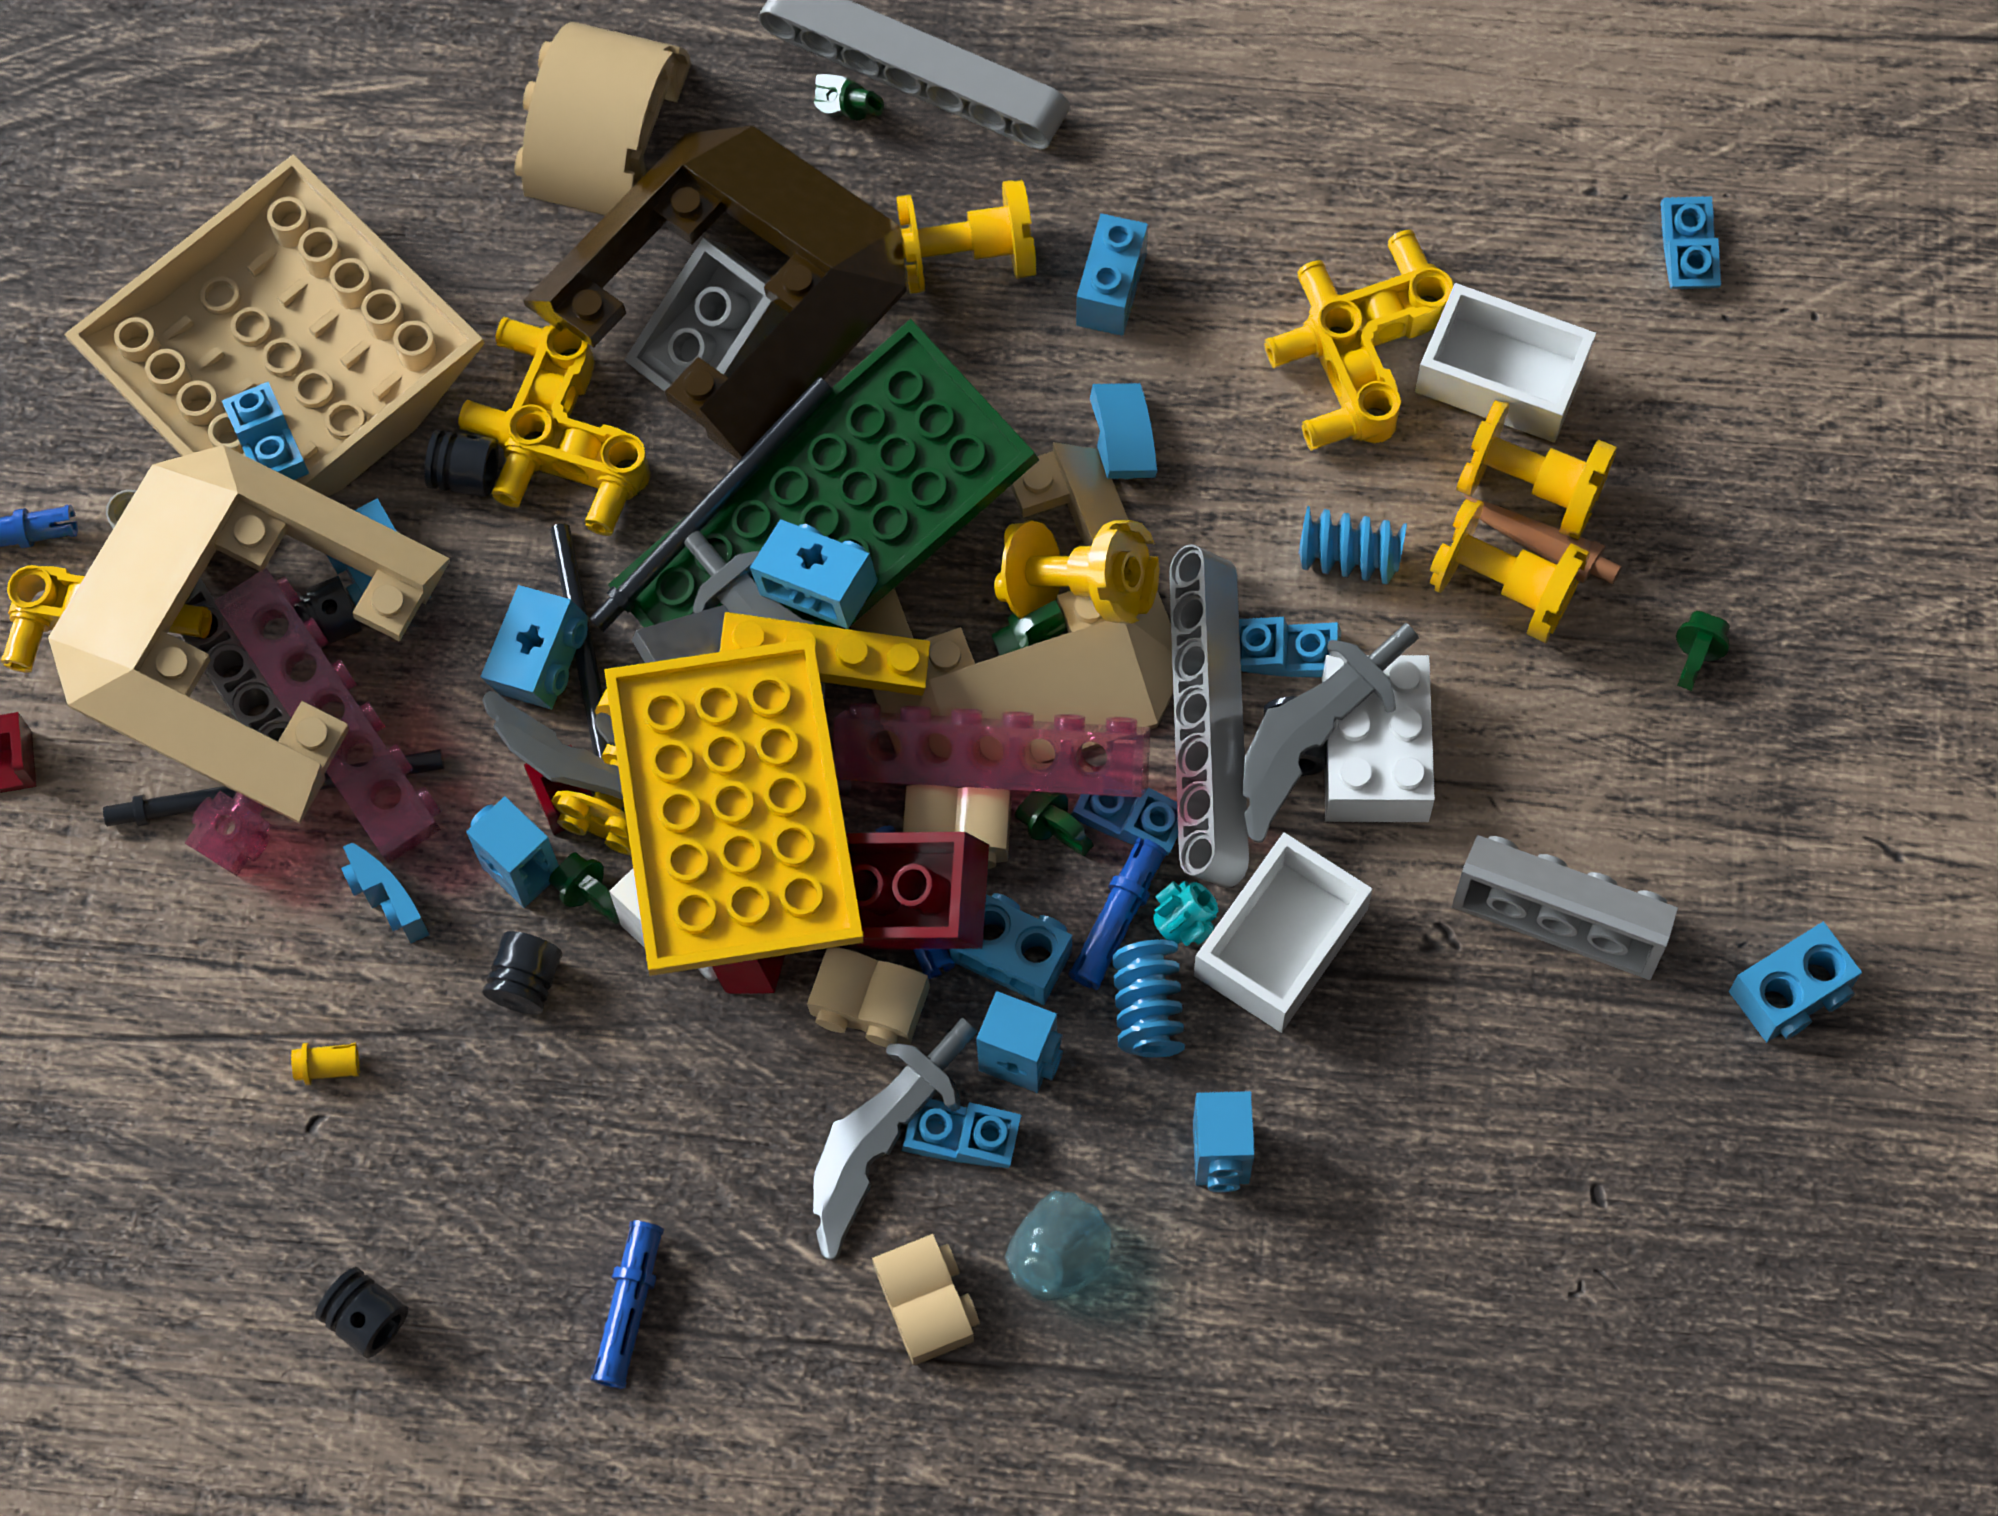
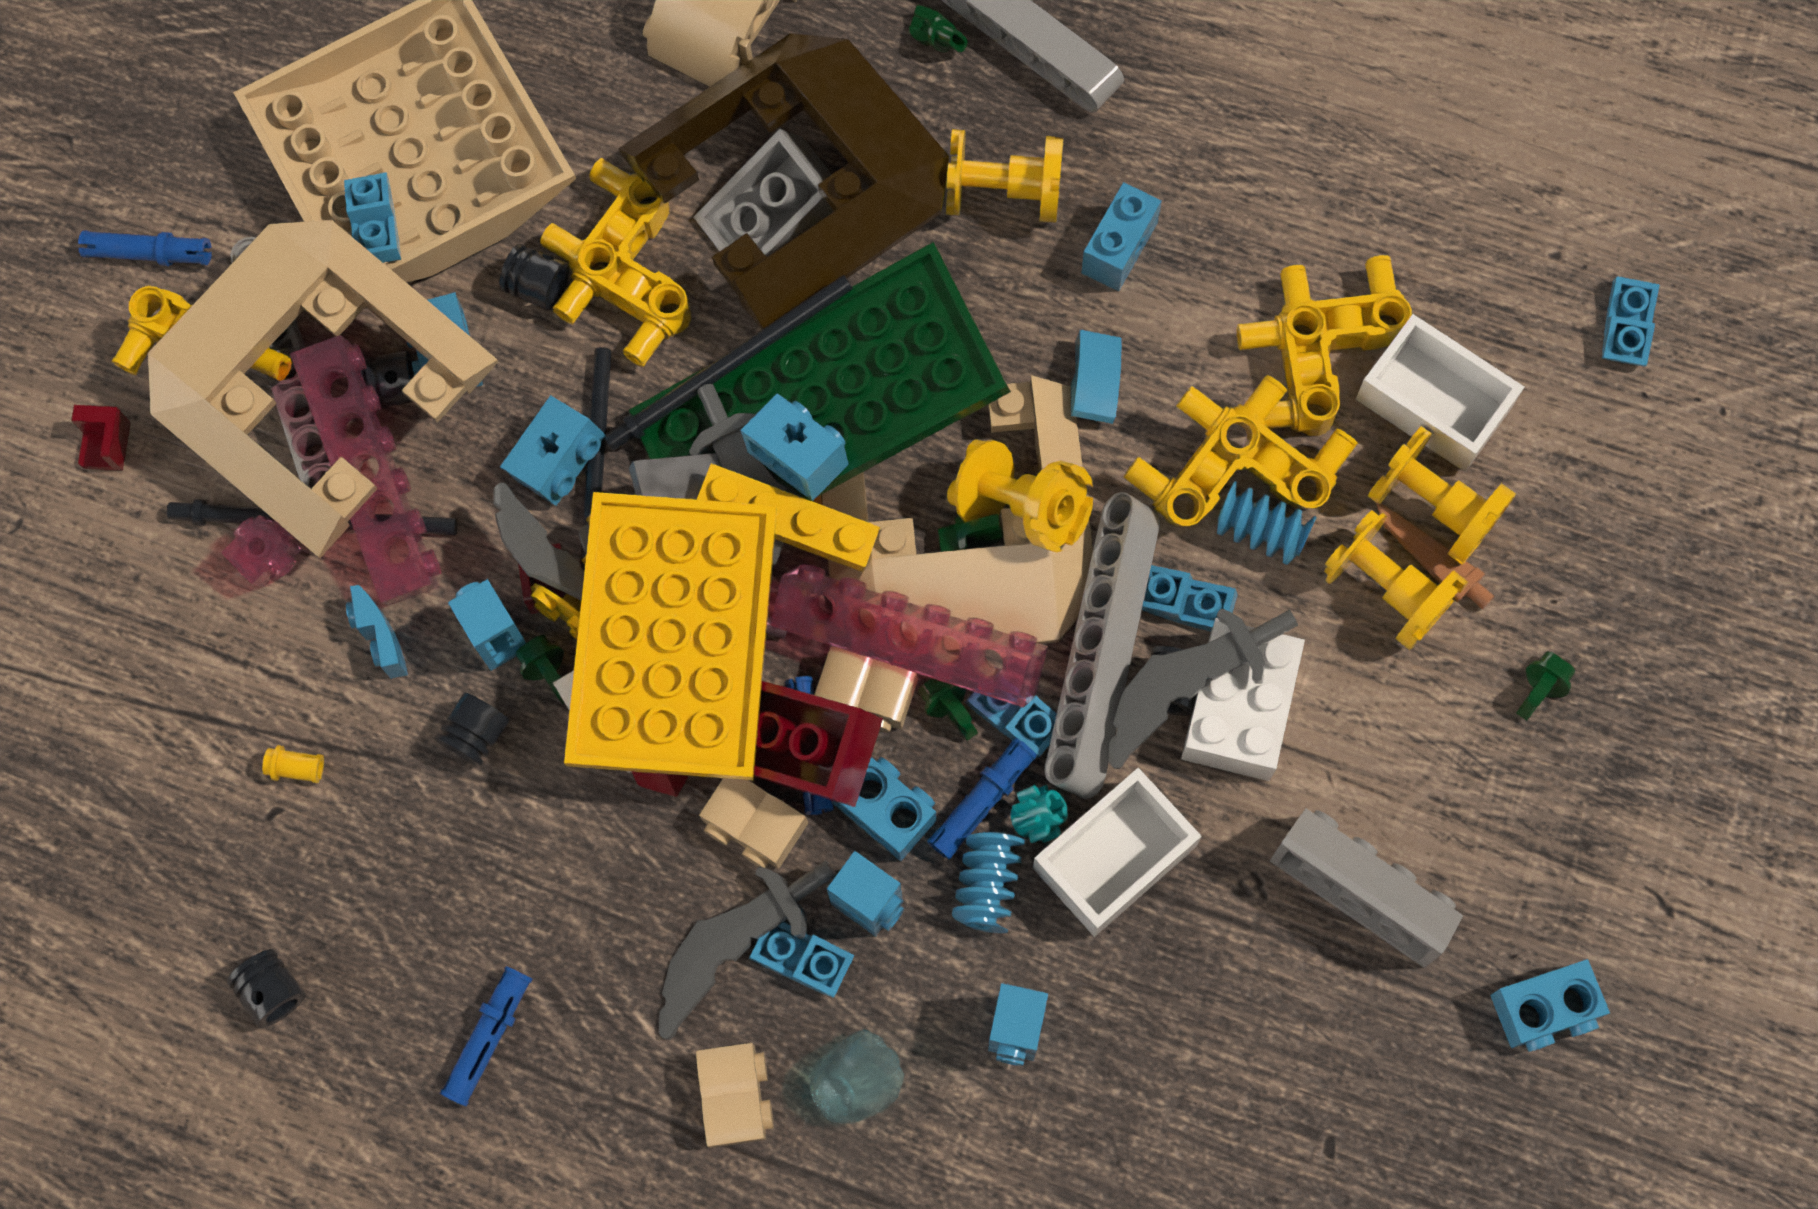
camera: 15 degrees right, 5 degrees up
(1331, 472) = (1263, 455): none -> yellow pin

